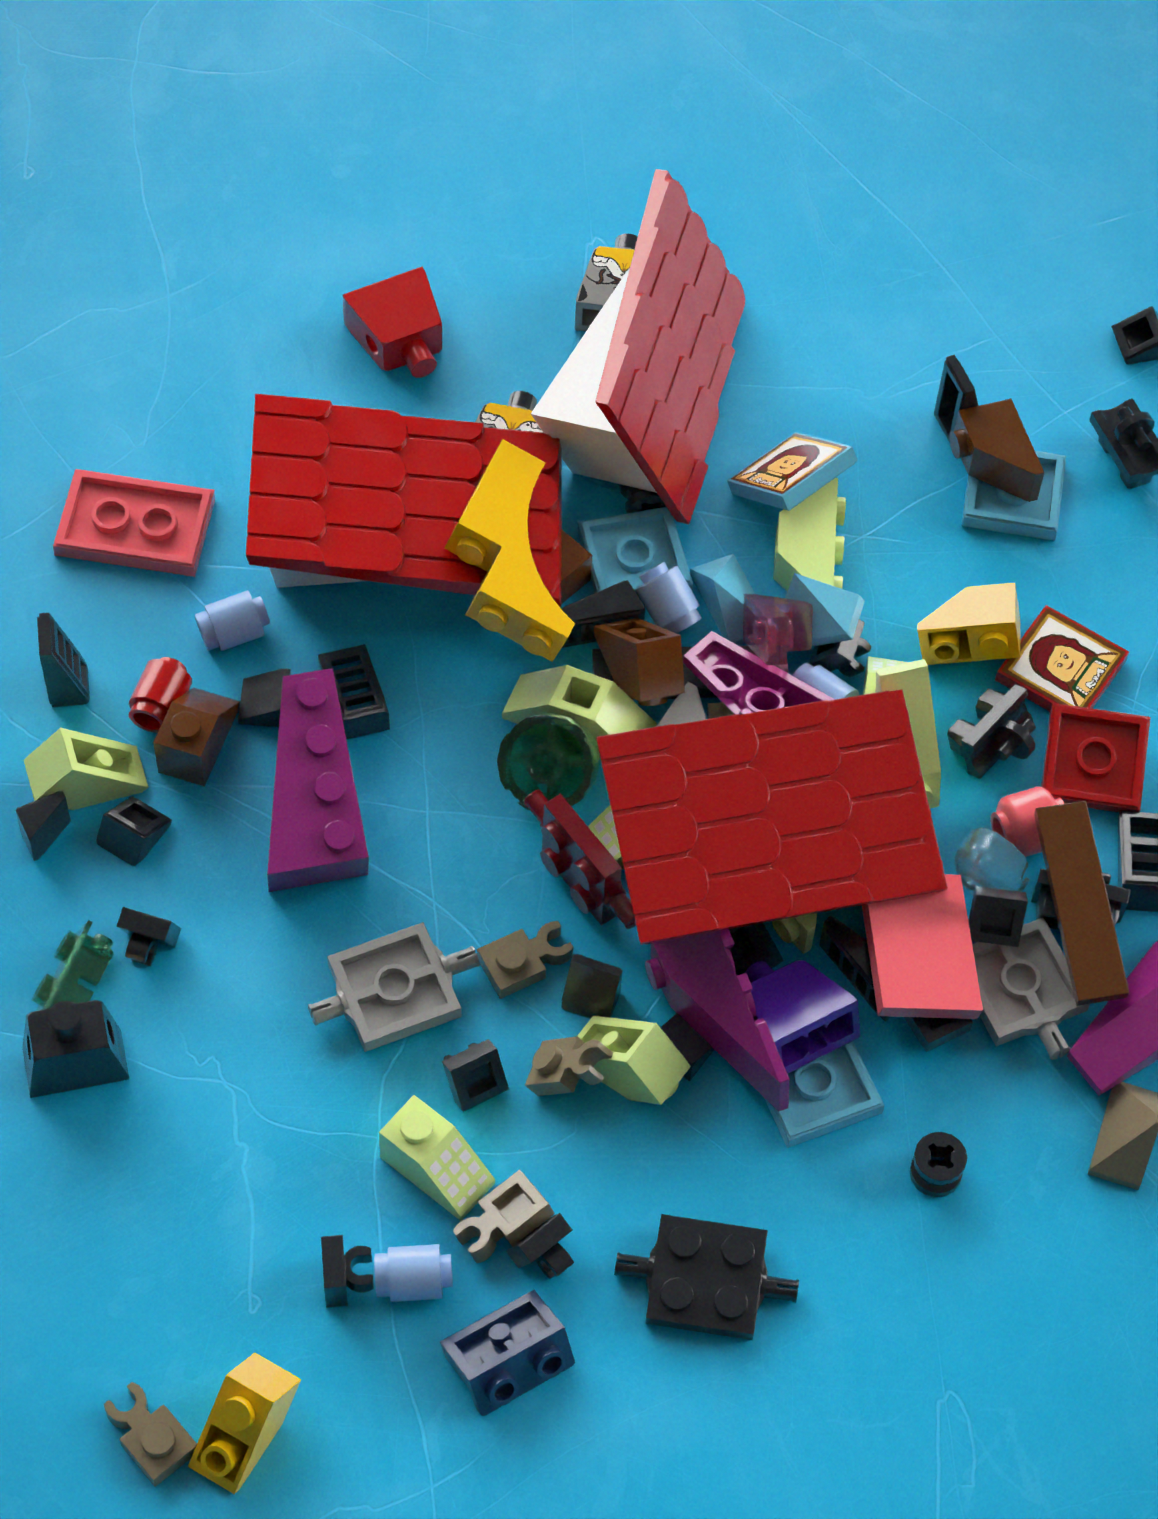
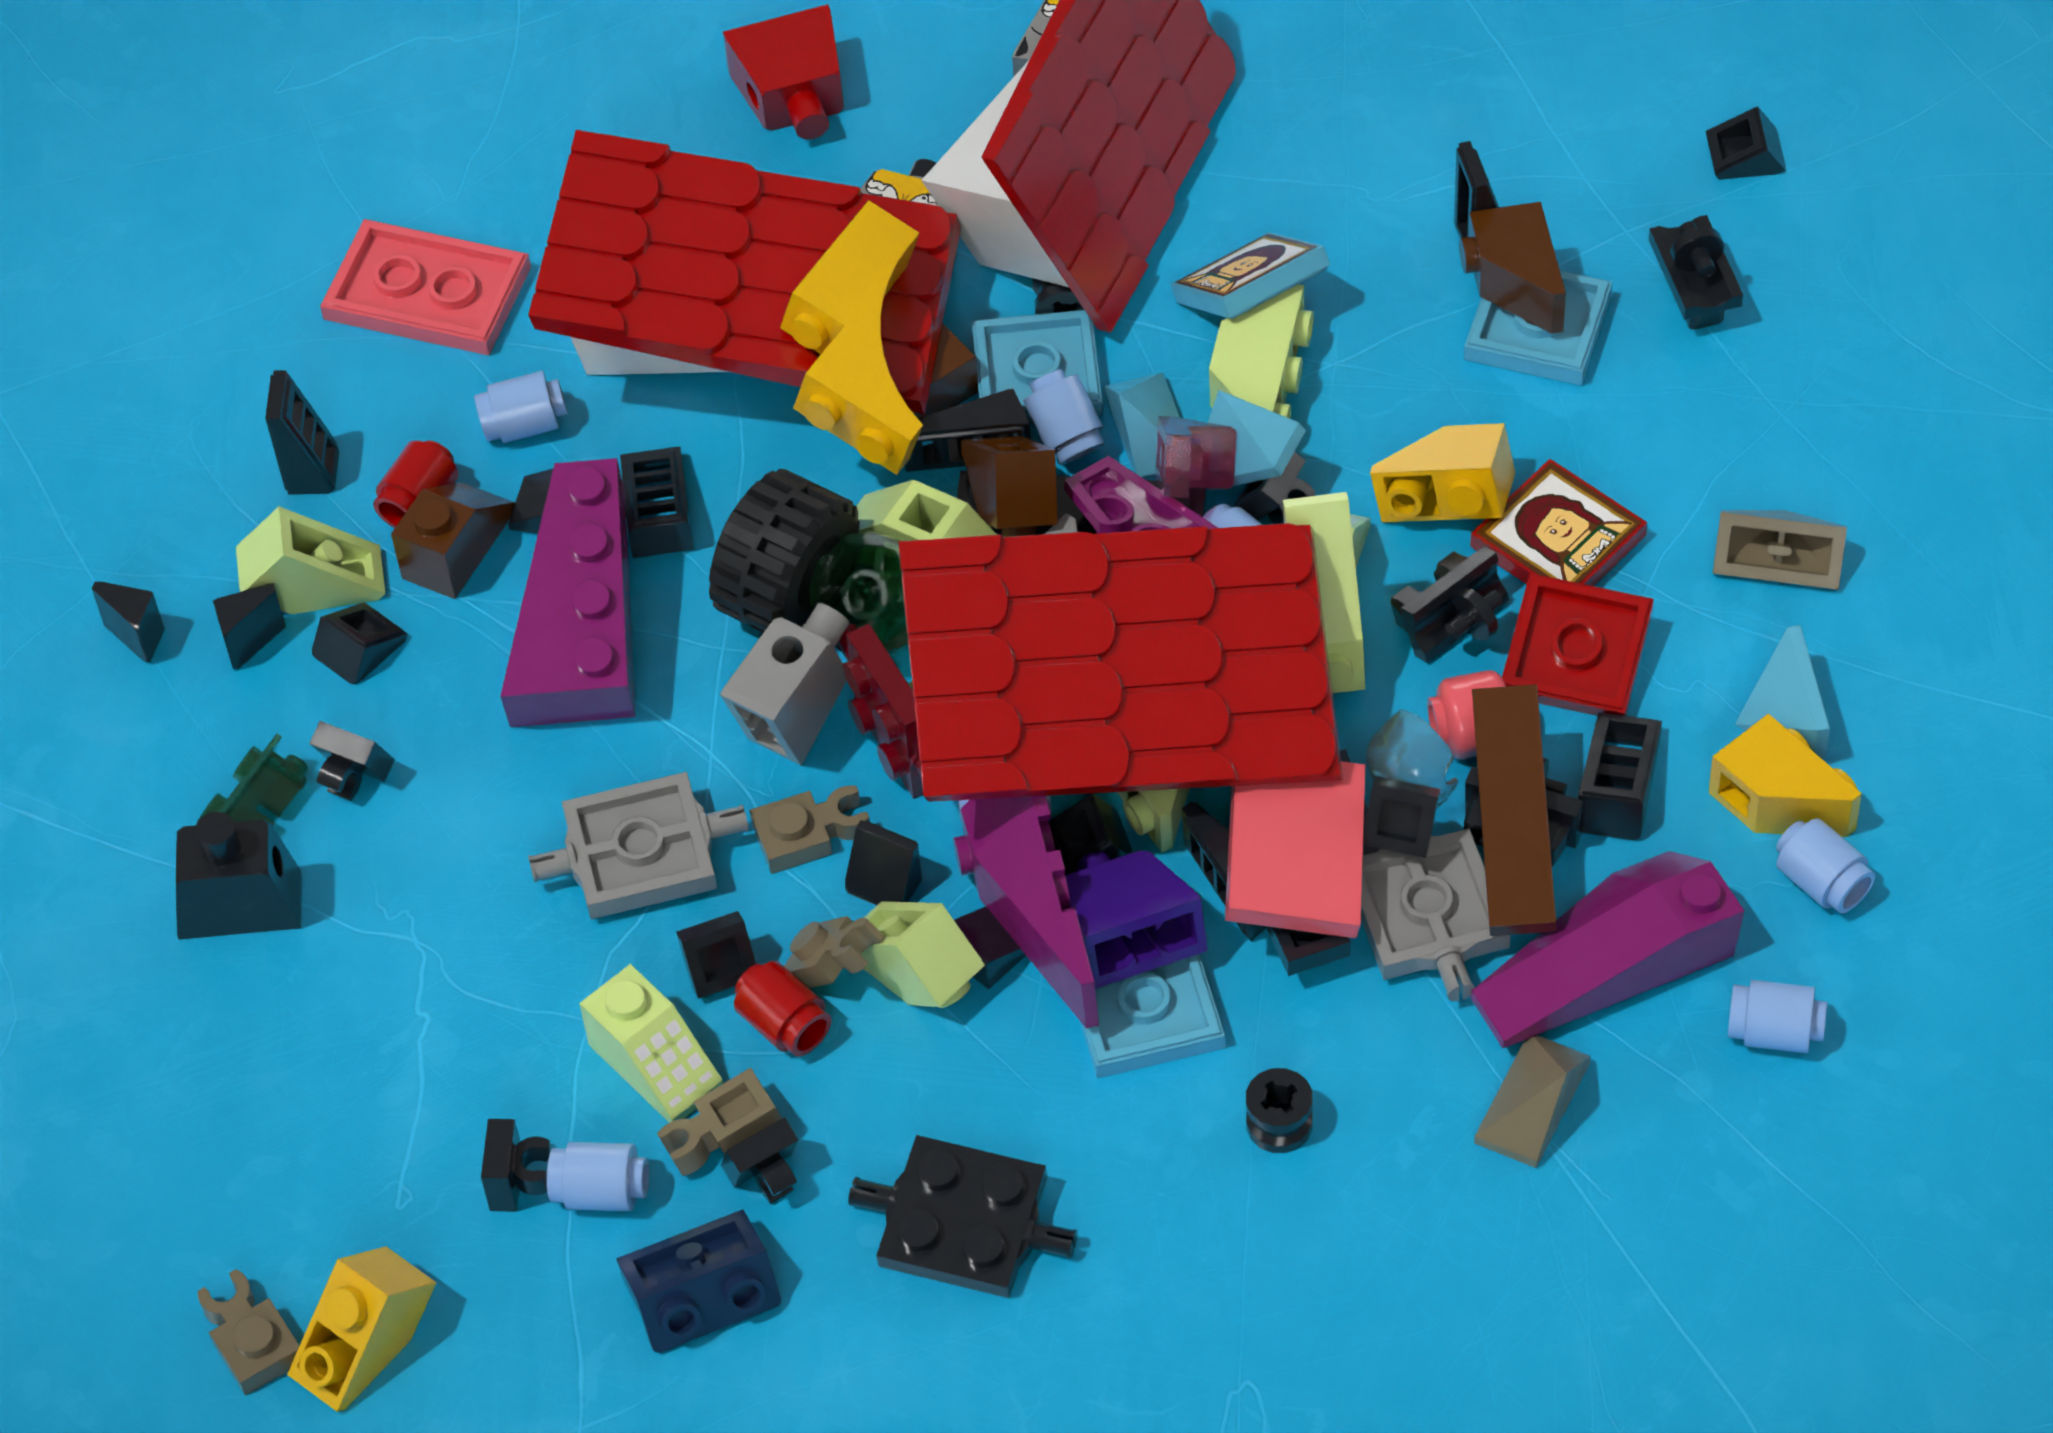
camera: 15 degrees right, 5 degrees down
(468, 734) = (772, 548): none -> black tyre
(494, 860) = (789, 683): none -> light grey torso
(534, 1115) = (781, 1008): none -> red brick

